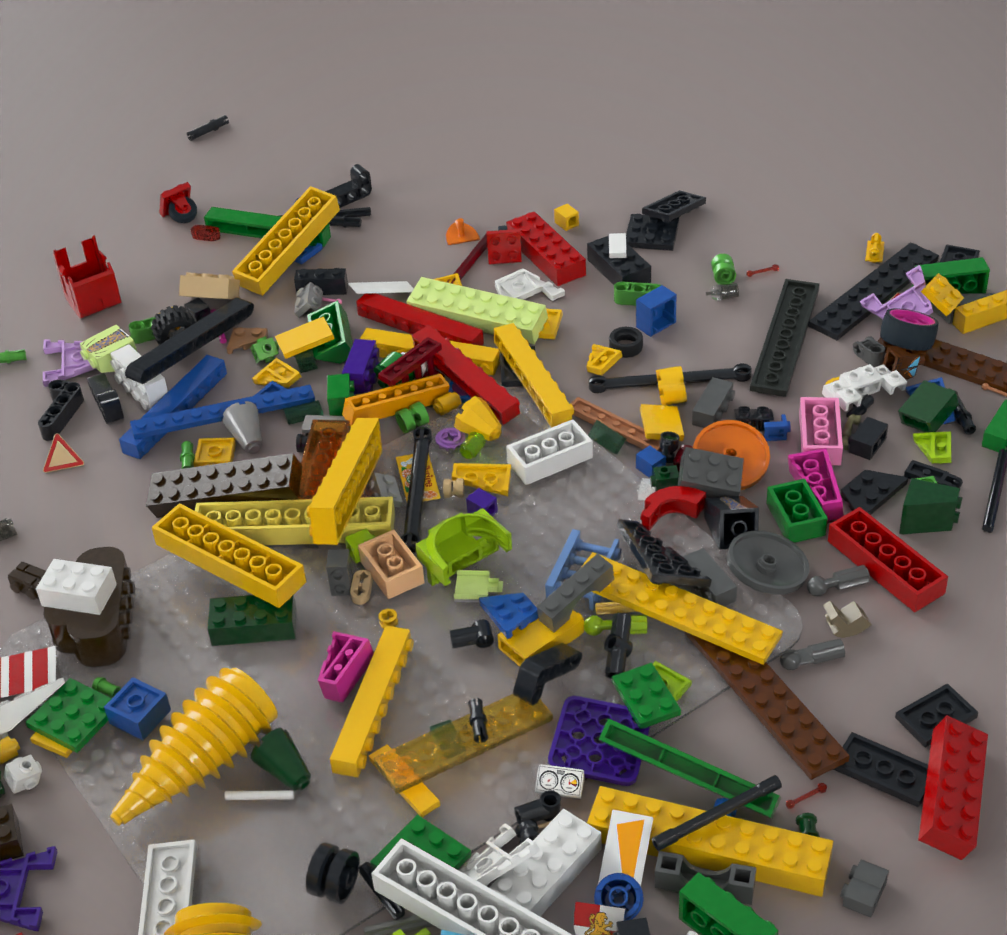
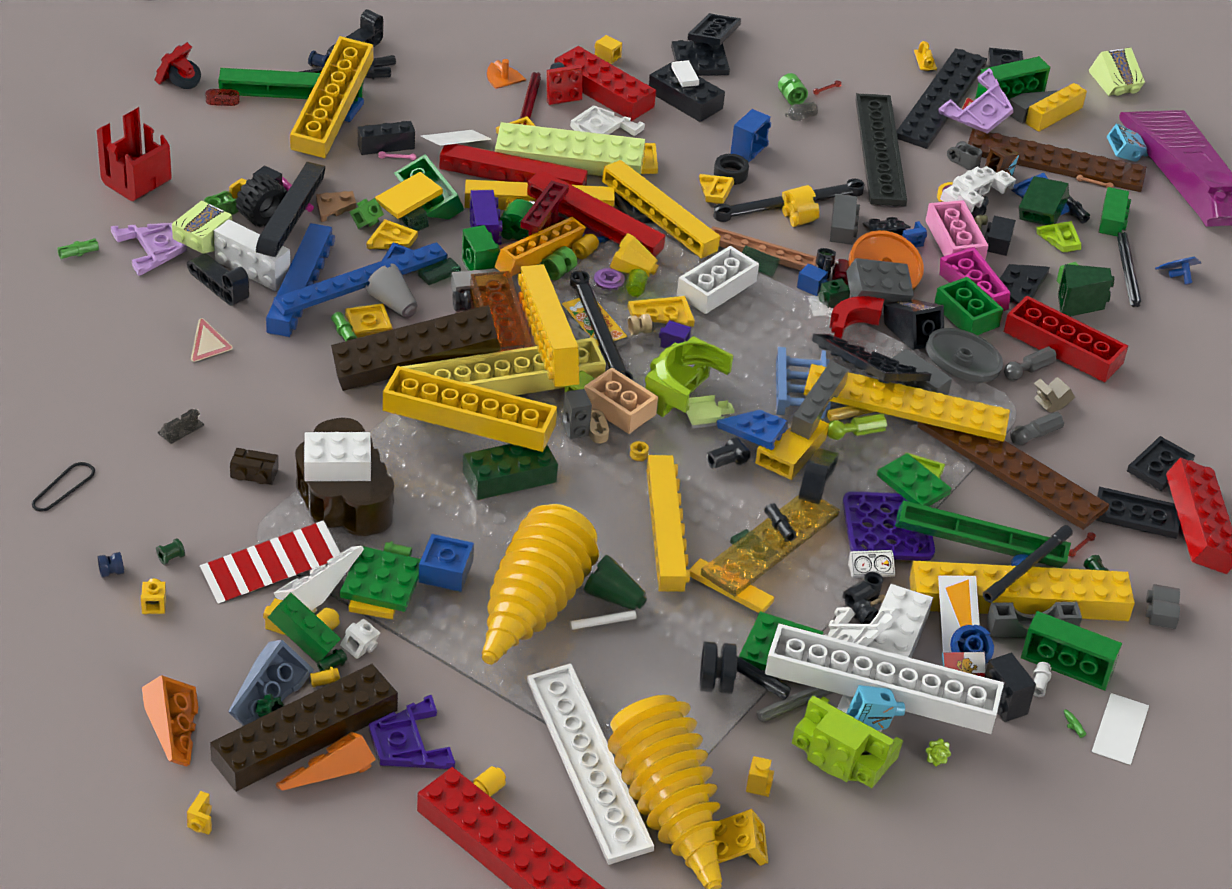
camera: 25 degrees left, 0 degrees up
(66, 401) = (177, 283): black beam -> none
(209, 286) = (272, 152): tan brick -> none
(308, 298) = (381, 157): light grey bracket -> none
(344, 665) = (626, 494): dark pink wedge -> none
(618, 644) = (870, 442): black piece -> none
(627, 292) = (717, 120): bright green beam -> none
(661, 419) = (802, 240): yellow tile -> none
(909, 329) = (1001, 130): black wheel -> none
(919, 470) = (1057, 259): black hinge -> none
(942, 294) = (1017, 94): yellow plate -> none

